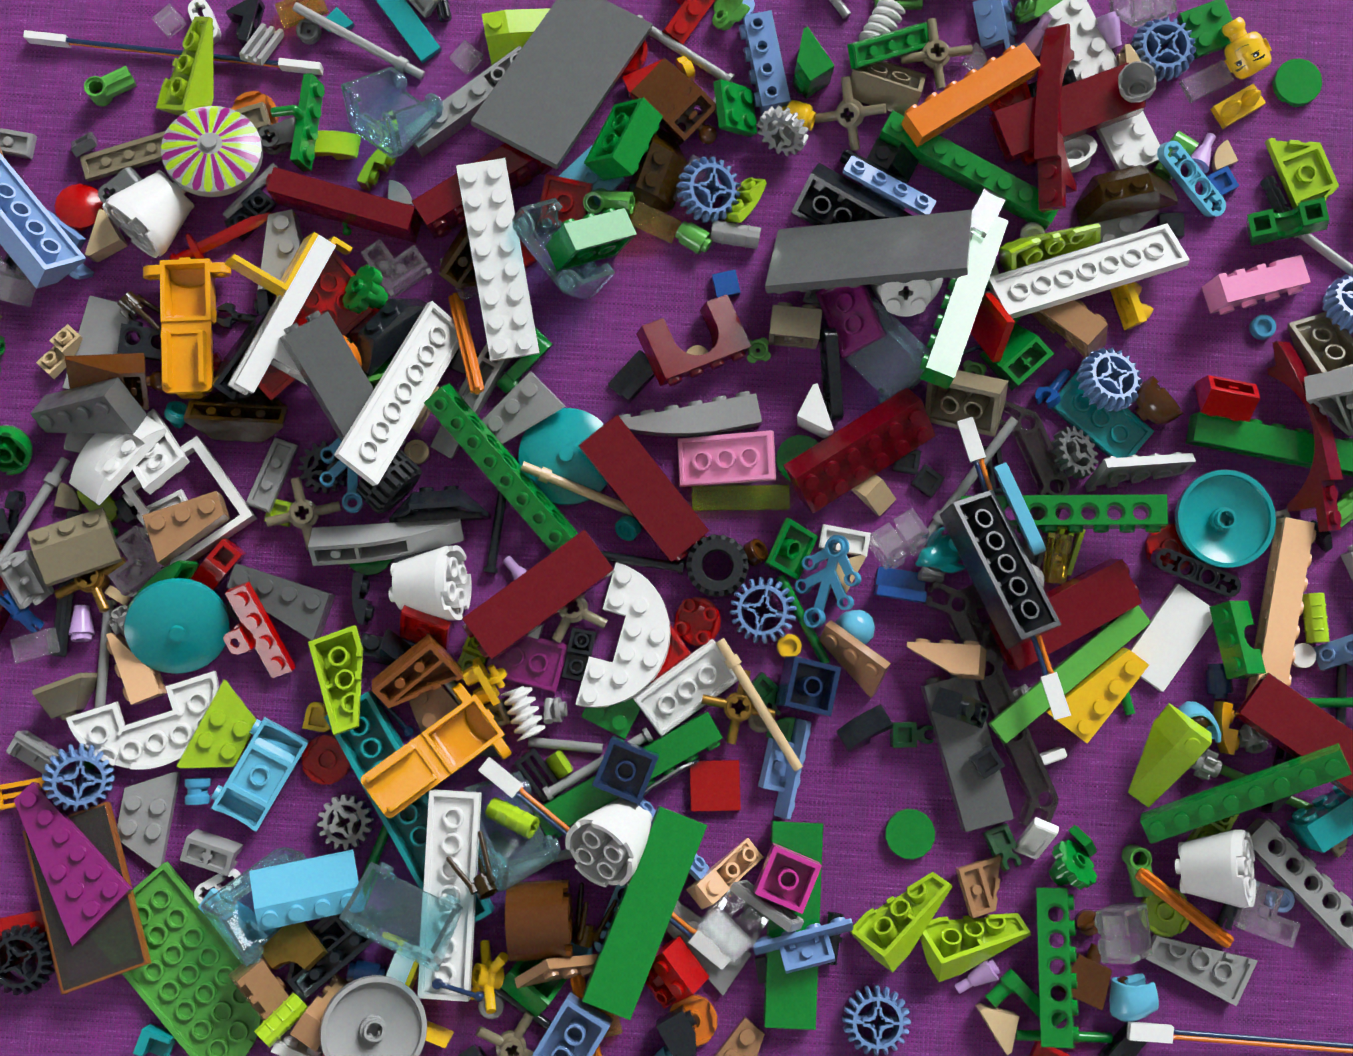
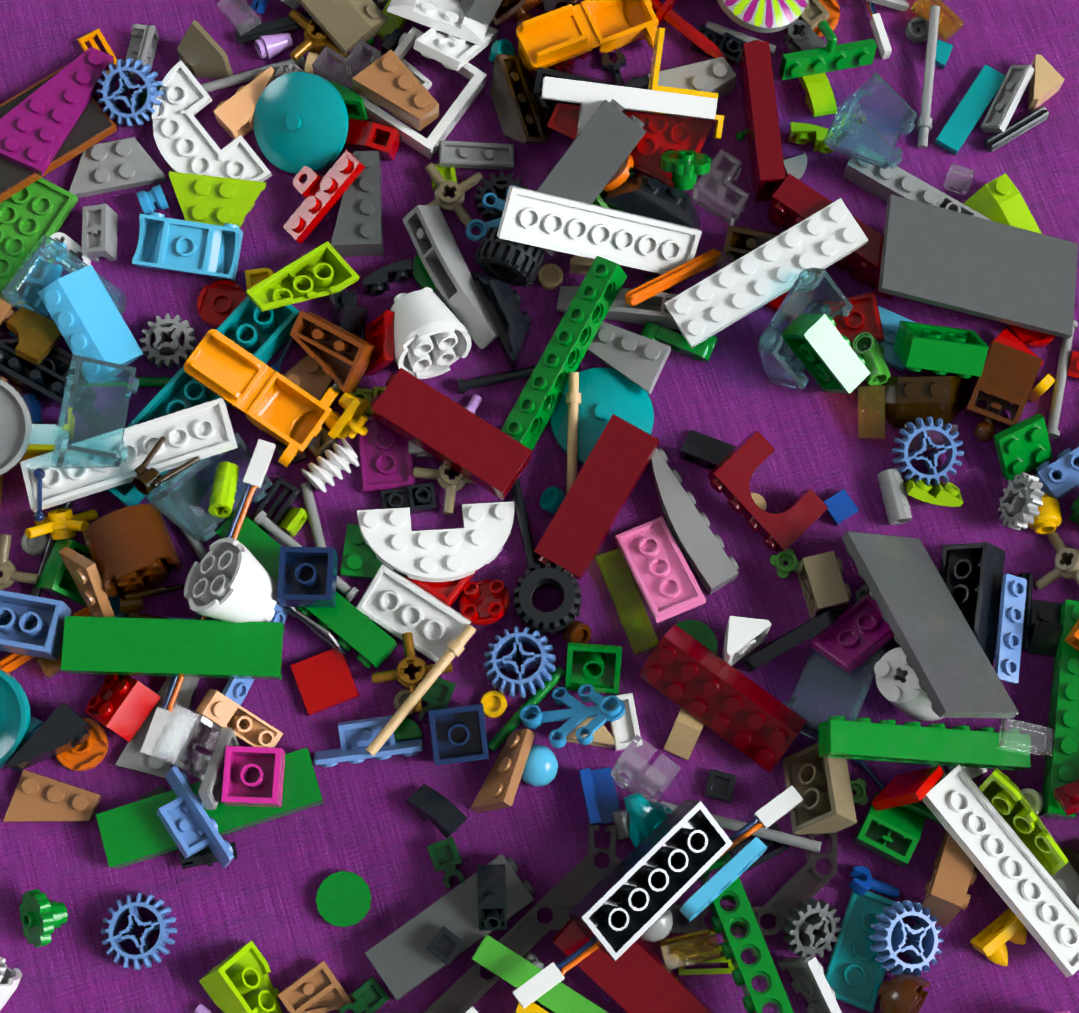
camera: 75 degrees right, 10 degrees down
(554, 710) = (344, 496): light grey plate -> none
(694, 237) = (873, 457): bright green brick -> none
(898, 925) = (243, 919): lime wedge -> none
(908, 464) = (731, 758): black tile -> none
(960, 660) = (542, 879): light nougat slope -> none

